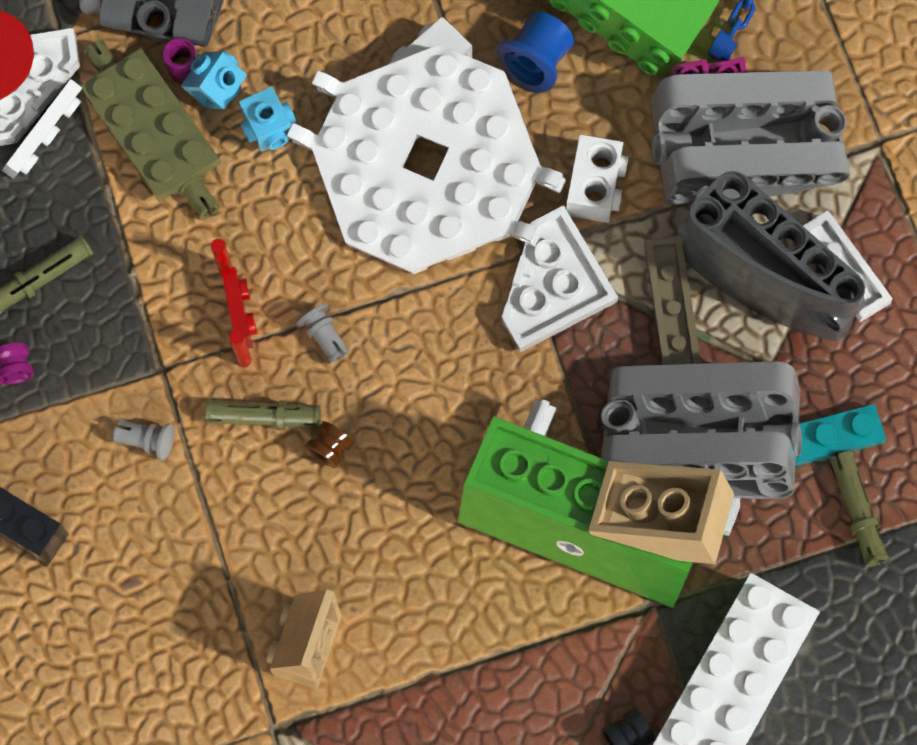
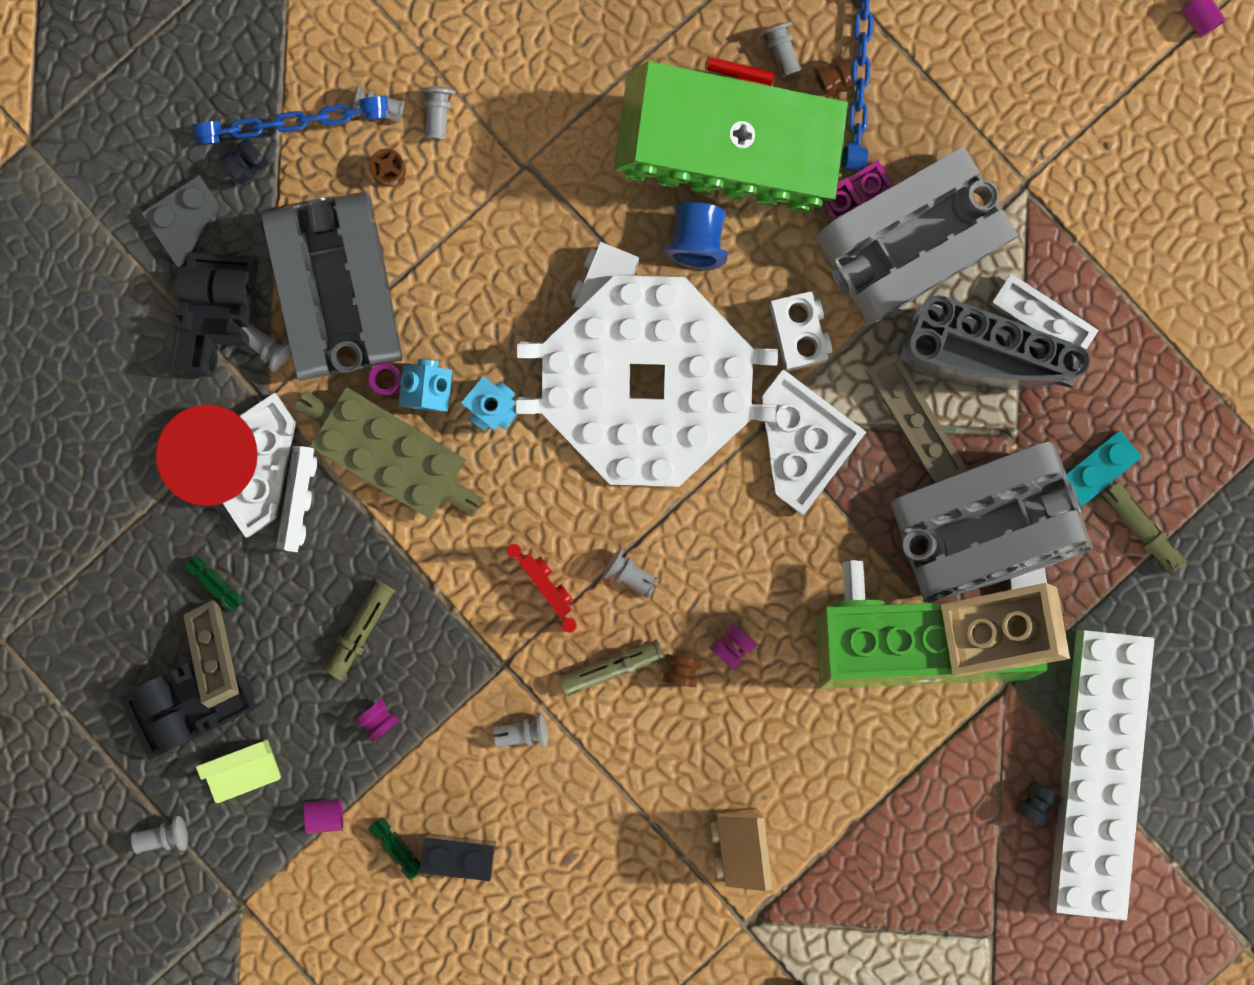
camera: 35 degrees left, 15 degrees up
(383, 446) = (727, 651): none -> magenta wheel

